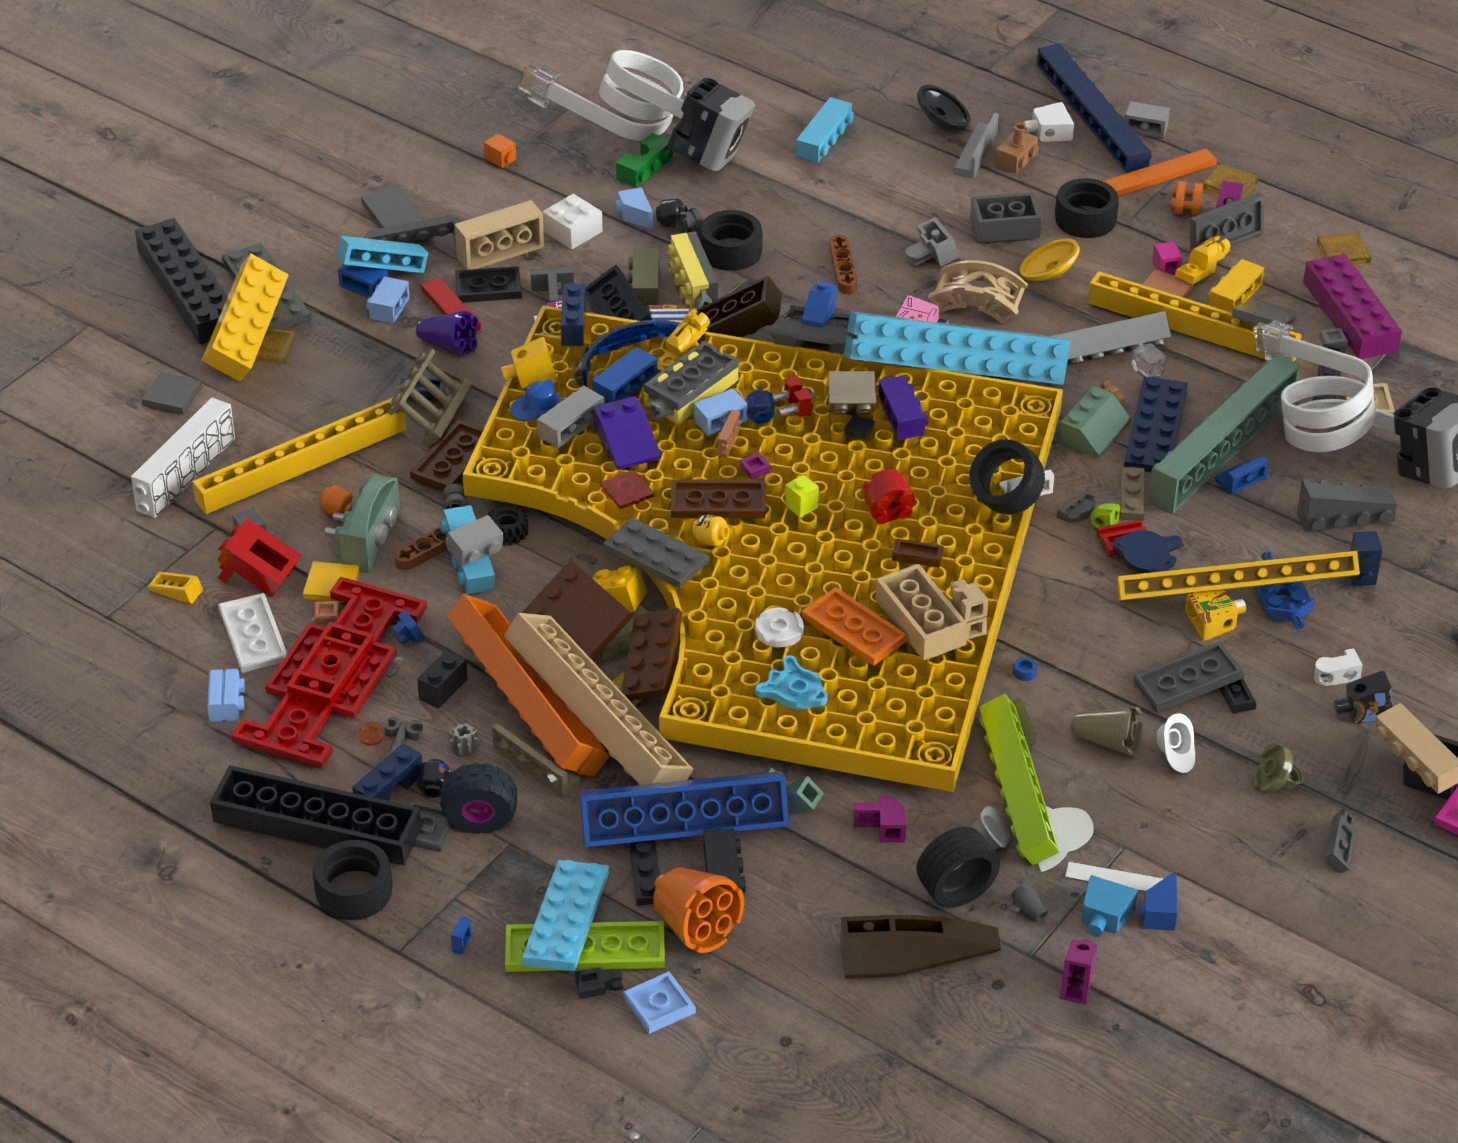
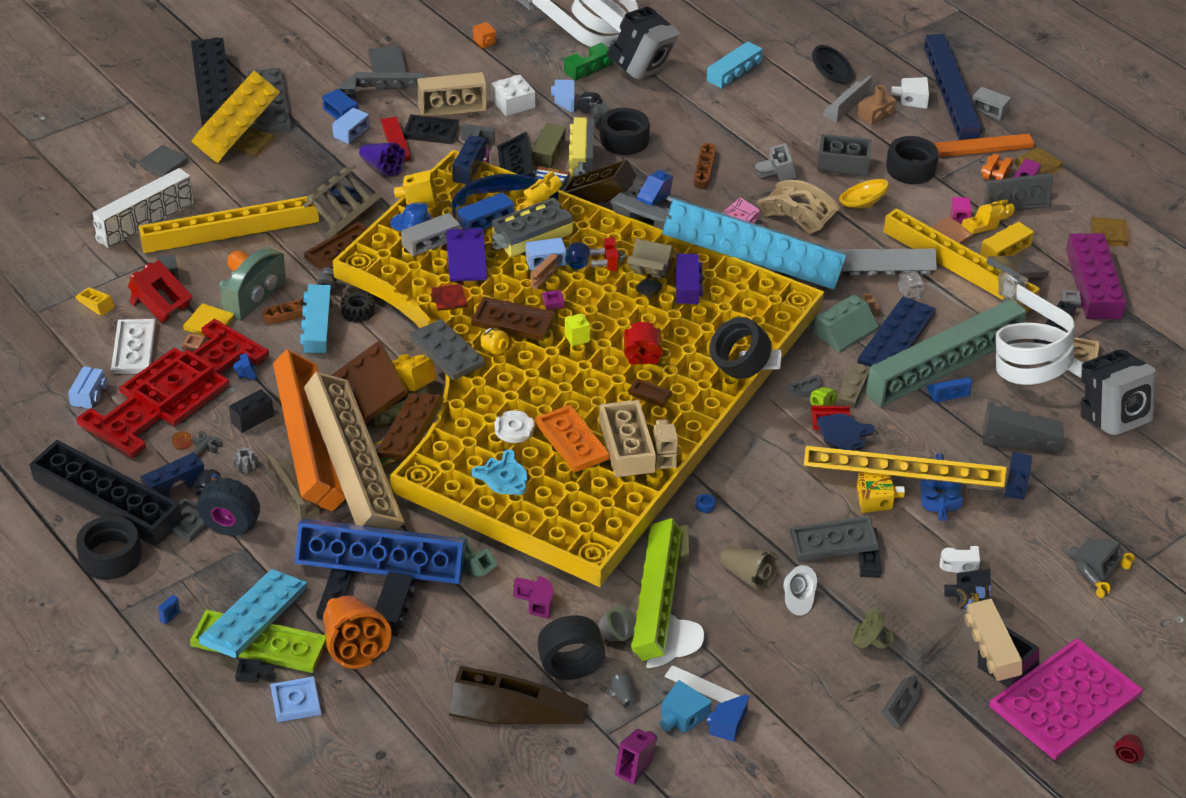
camera: 15 degrees right, 0 degrees up
(382, 254) = (357, 91): medium azure brick -> none
(475, 540) = (319, 312): light grey brick -> none

